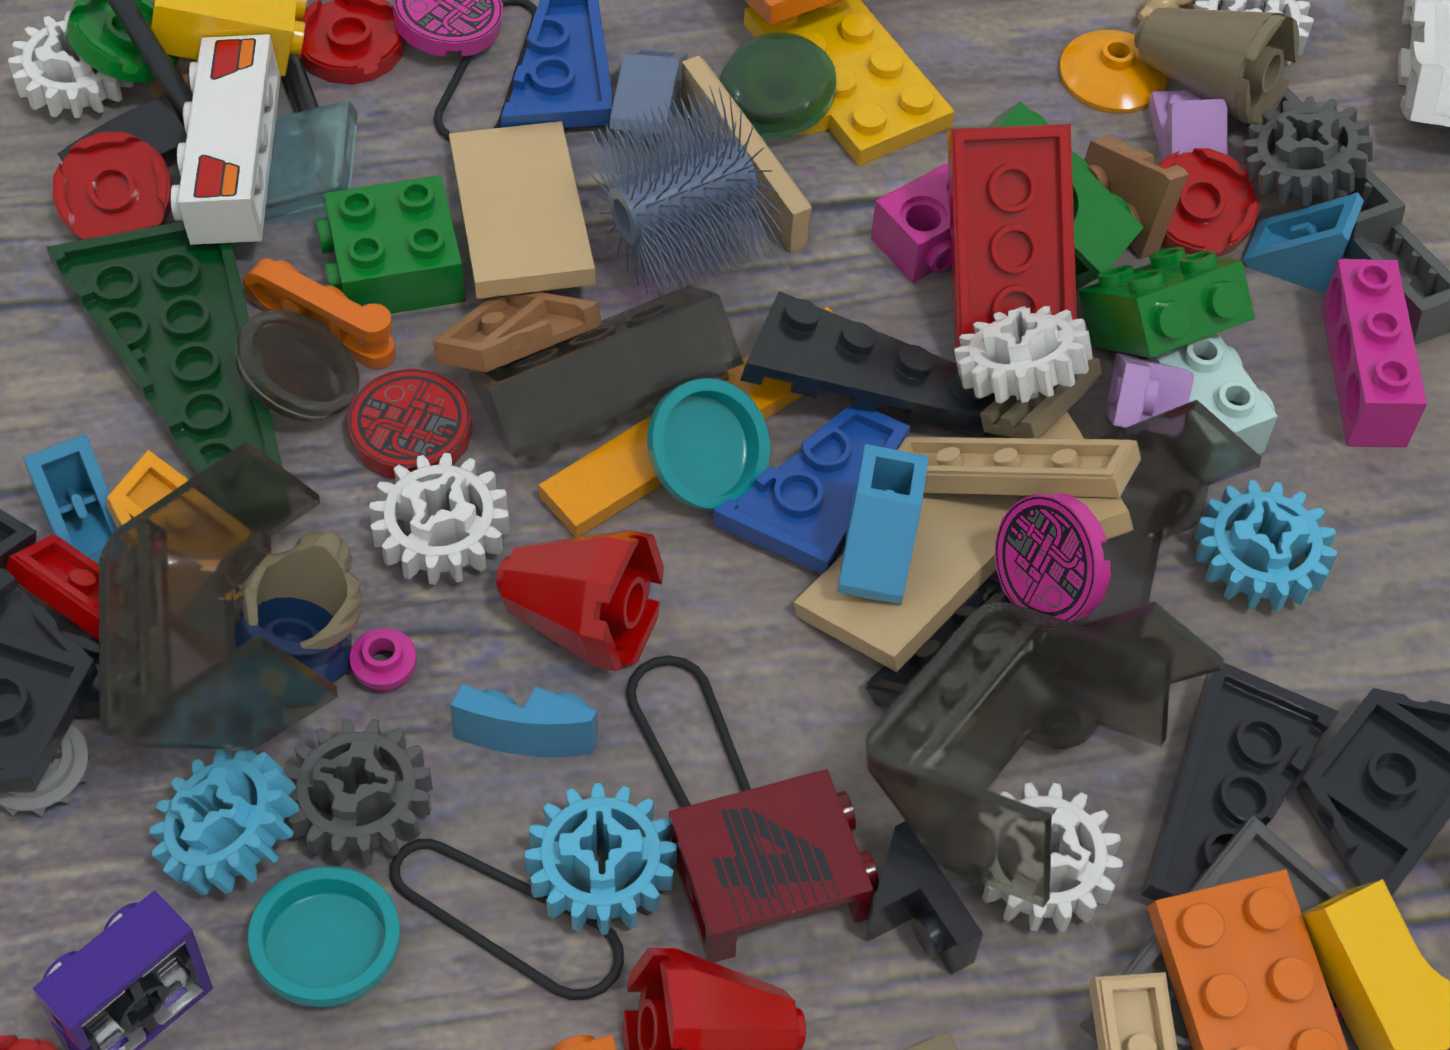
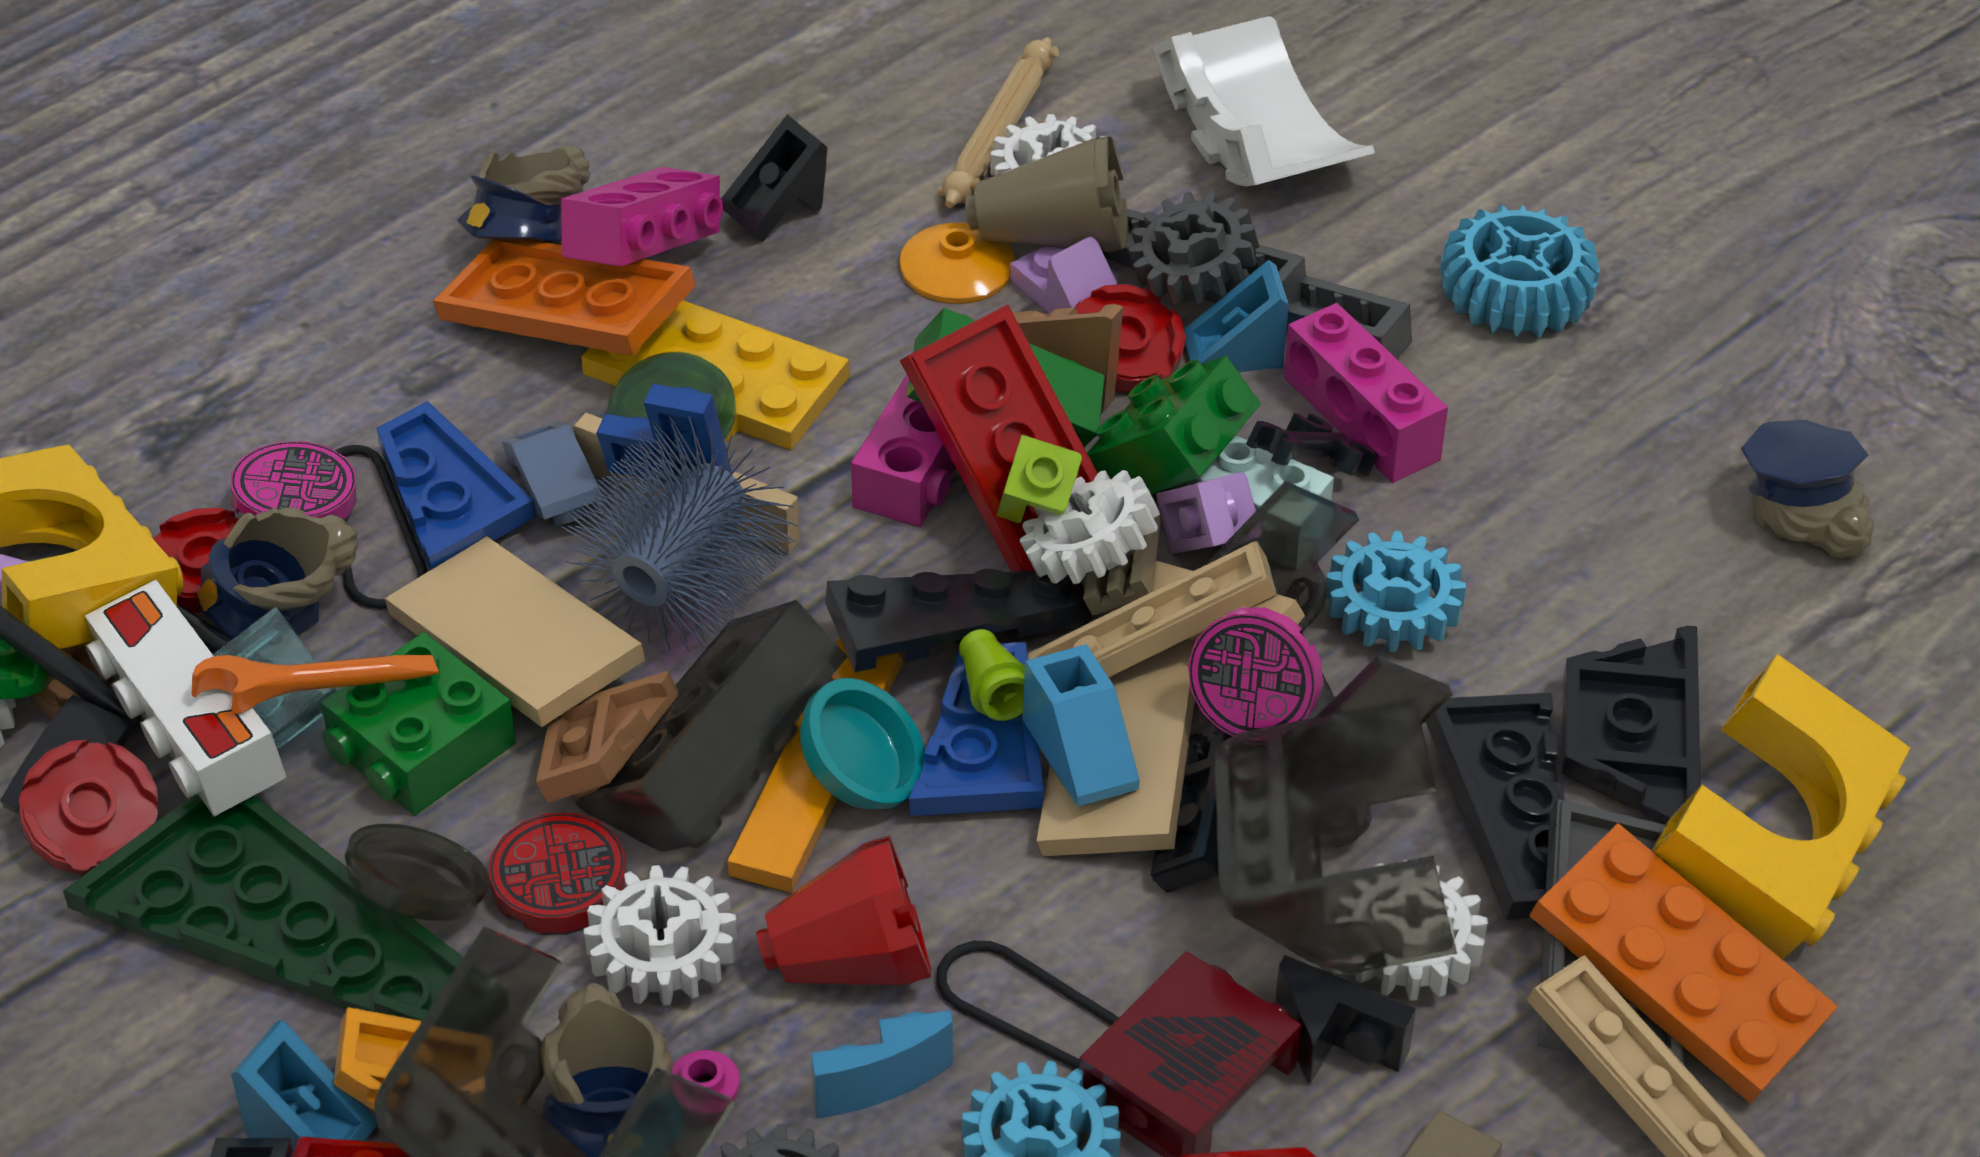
camera: 30 degrees left, 10 degrees down
(270, 153) = (258, 681): none -> orange piece
(362, 329) = (450, 809): orange plate -> none
(378, 68) = (275, 562): none -> piece
(745, 94) = (662, 401): none -> blue plate
(845, 441) = (992, 676): none -> lime cone
(998, 290) = (1040, 478): none -> lime bracket
(1289, 371) = (1312, 438): none -> black bar

